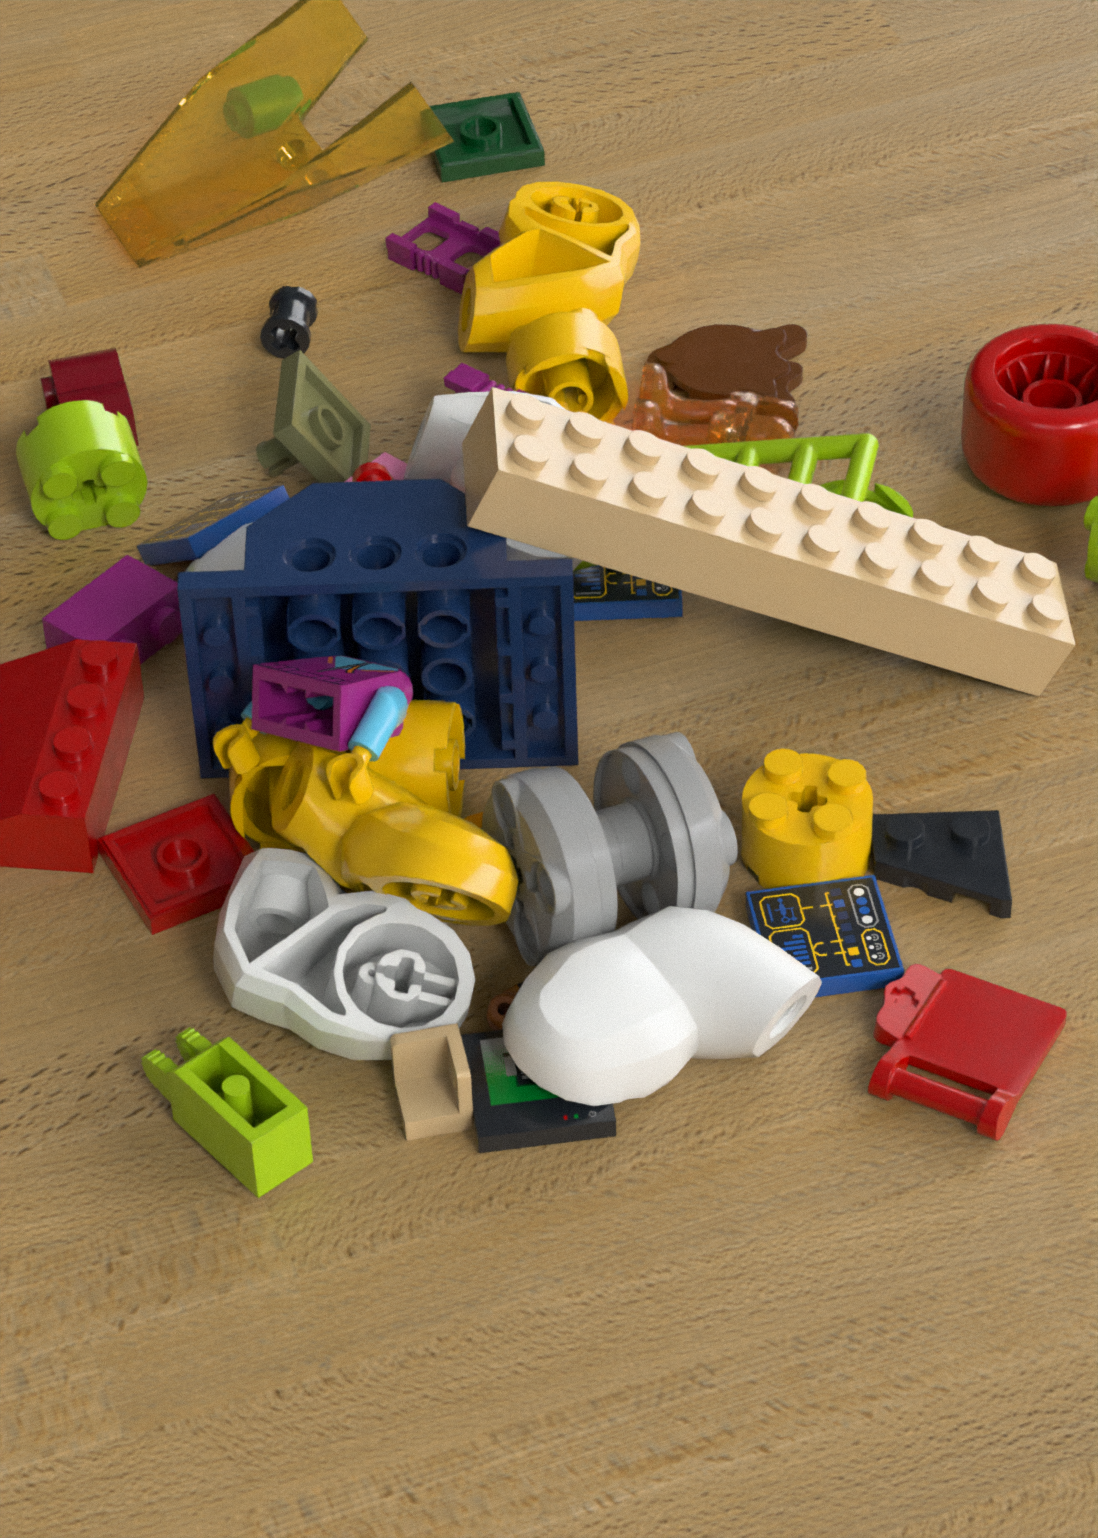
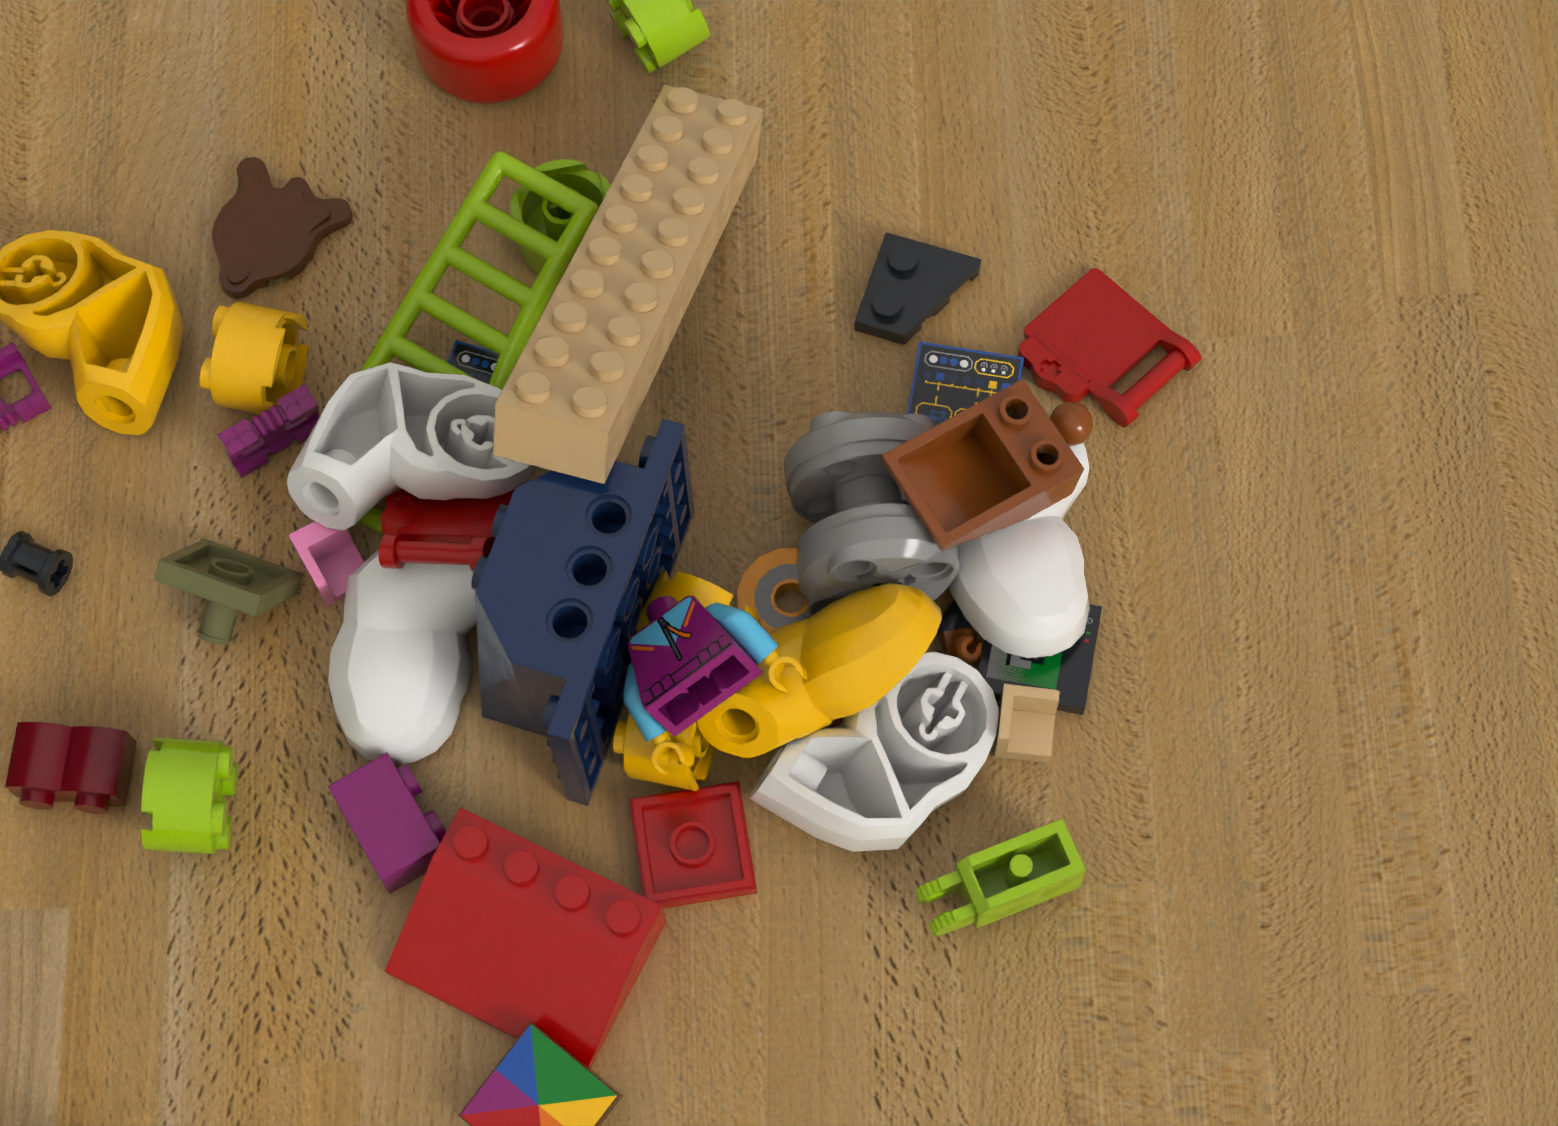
camera: 70 degrees left, 25 degrees up
(210, 526) = (307, 704): blue tile -> none
(688, 887) = (990, 464): none -> dark orange slope
(709, 421) = (351, 246): clear orange piece -> none
(806, 819) = (860, 362): yellow brick -> none

